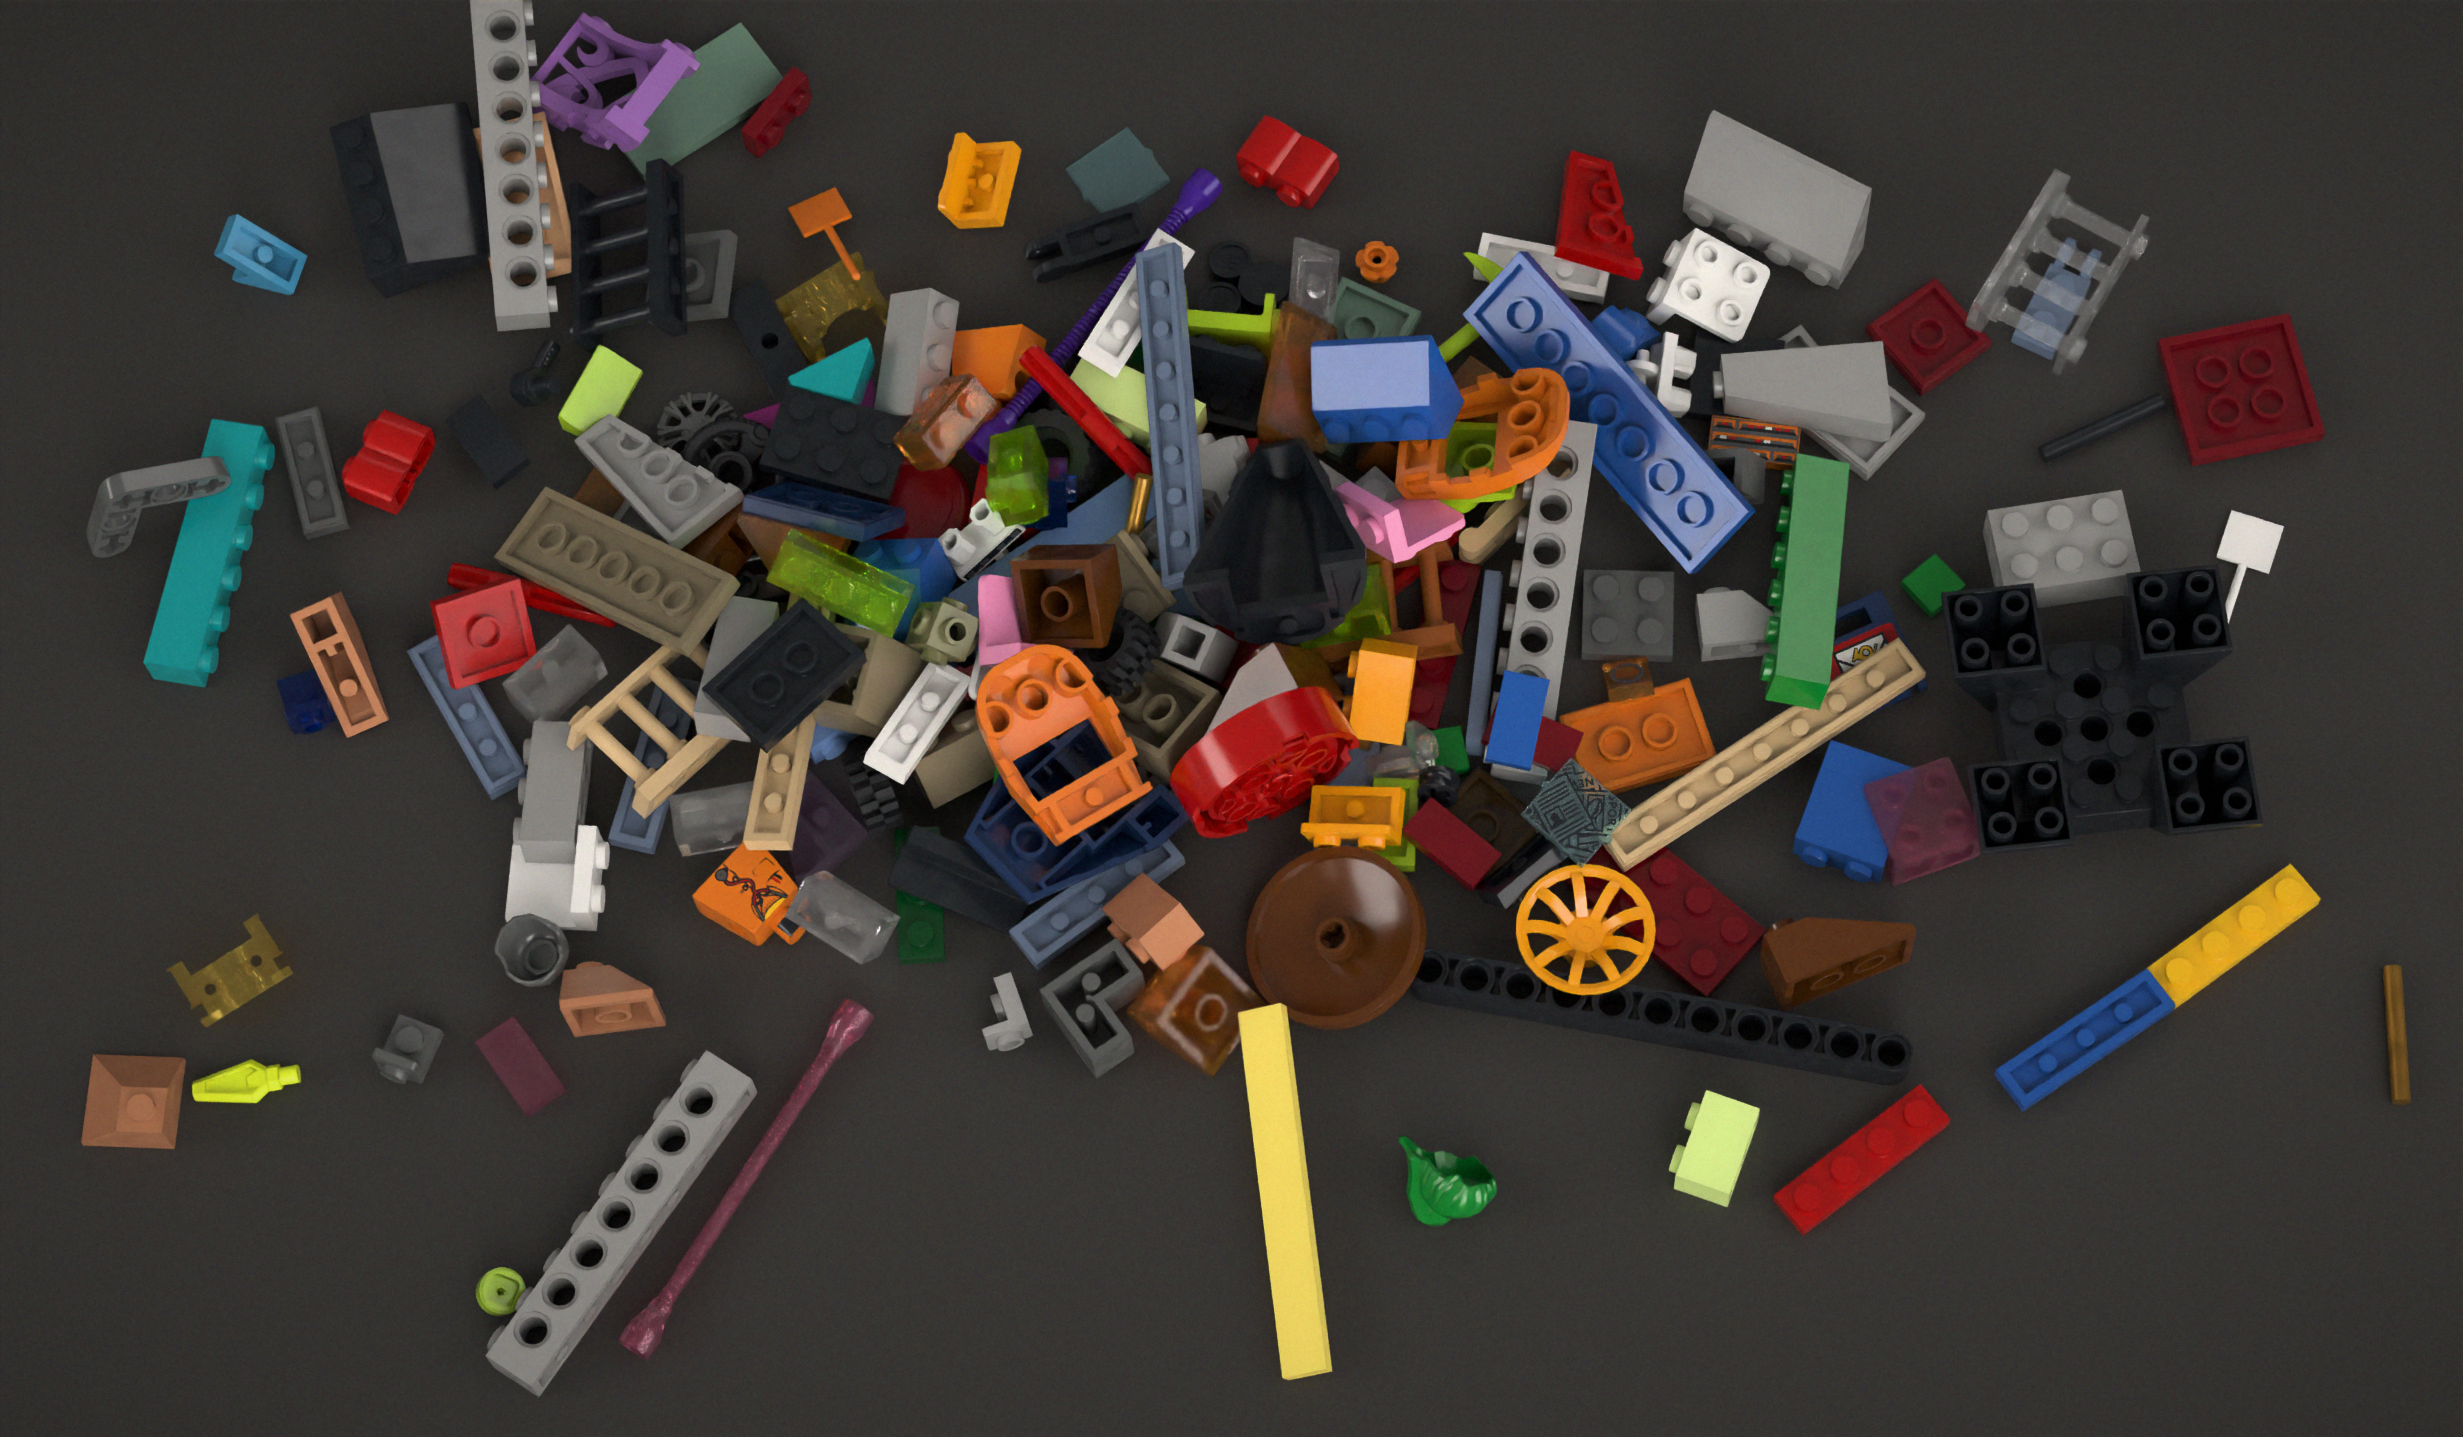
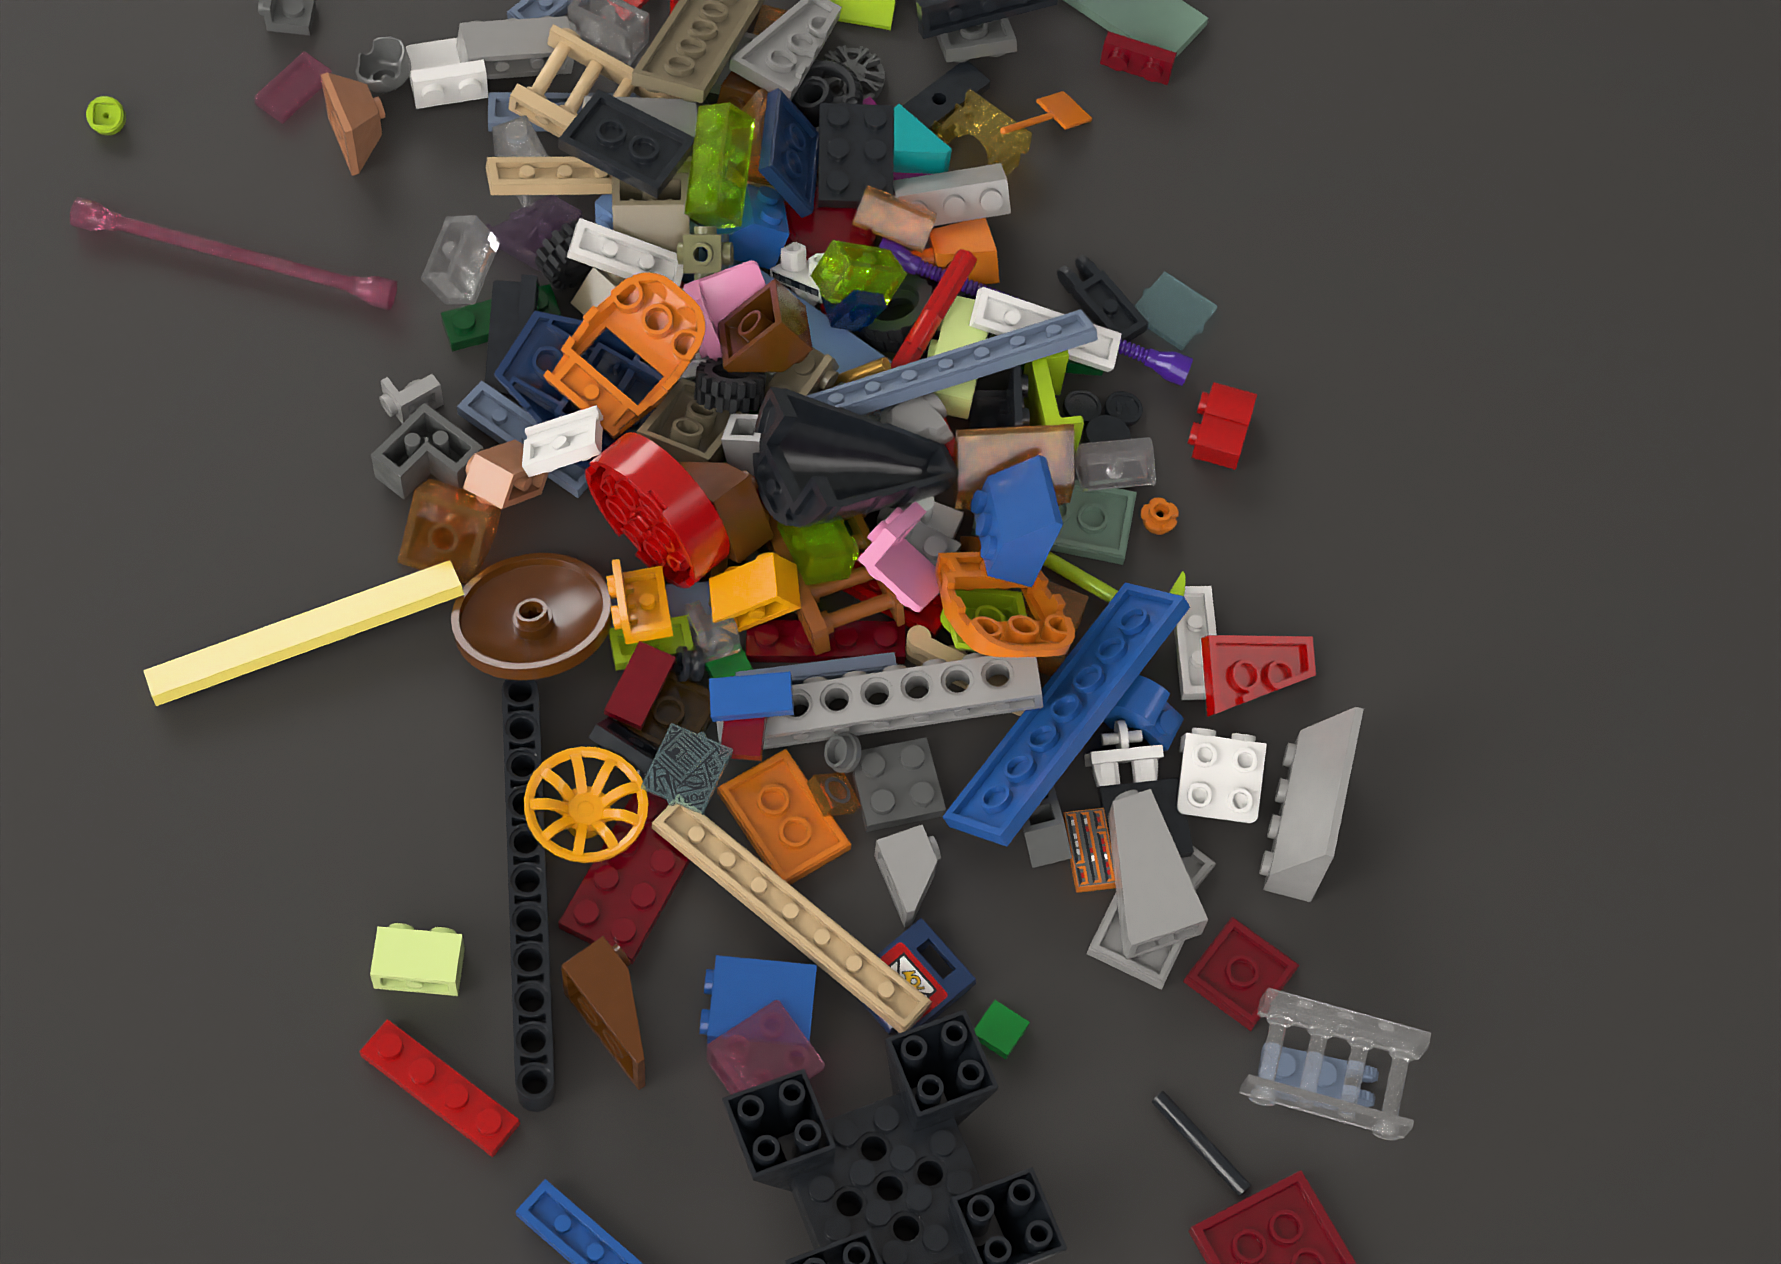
camera: 60 degrees right, 5 degrees down
(537, 1364) = (53, 149): light grey brick -> none
(750, 897) = (464, 192): orange torso -> none
(978, 182) = (1126, 207): light orange bracket -> none
(1149, 841) = (562, 441): none -> white plate
(1445, 1185) = (338, 751): green hair -> none
(1586, 654) = (843, 752): none -> dark grey plate
(1806, 581) = (958, 908): green brick -> none
(2064, 546) = (1062, 1127): light grey brick -> none

